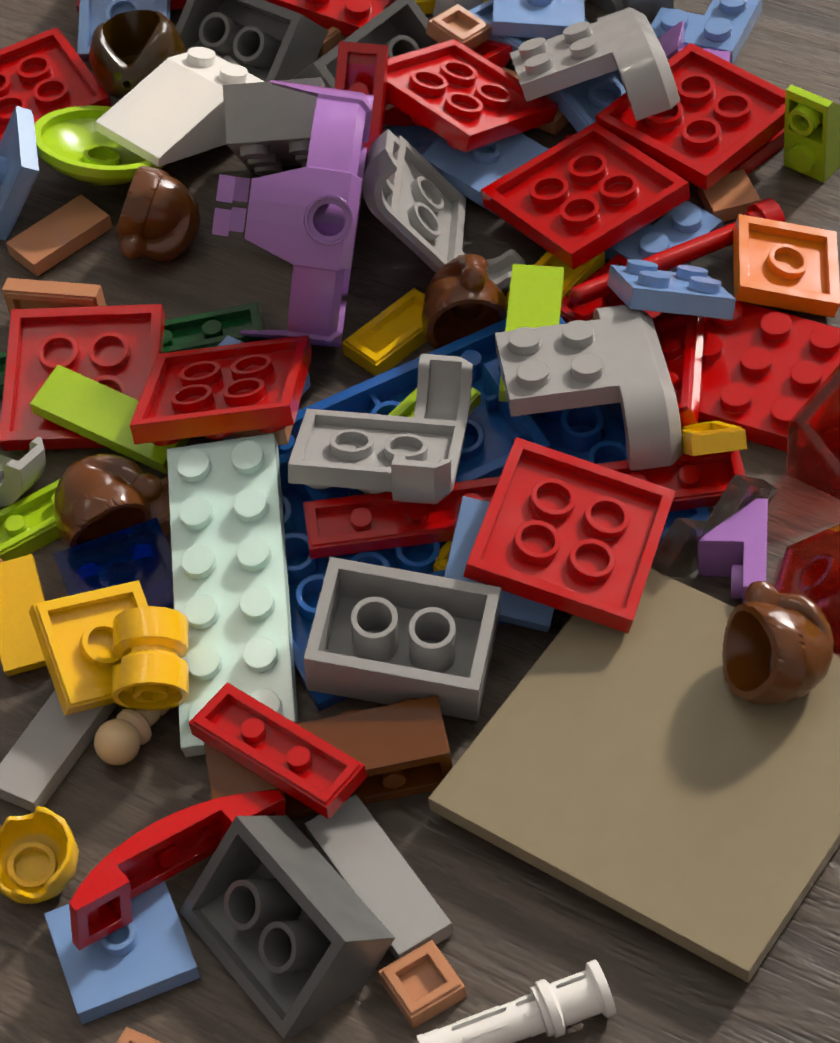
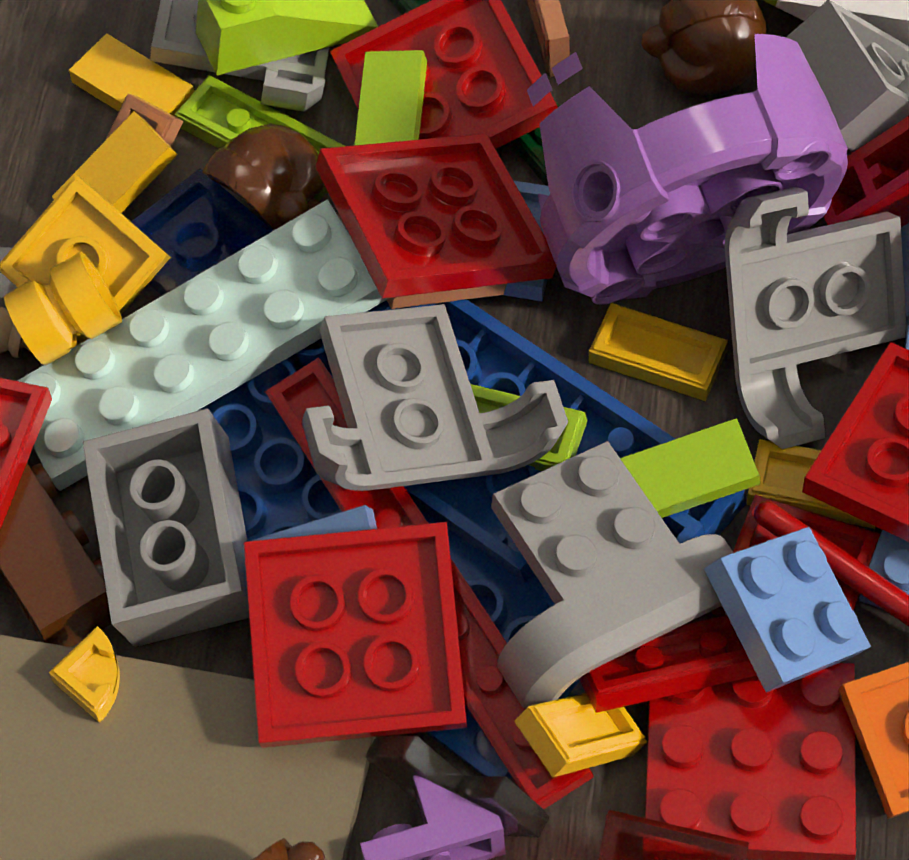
camera: 65 degrees right, 10 degrees up
(461, 301) = (689, 389): reddish brown piece -> none
(508, 731) = (90, 674): none -> yellow tile

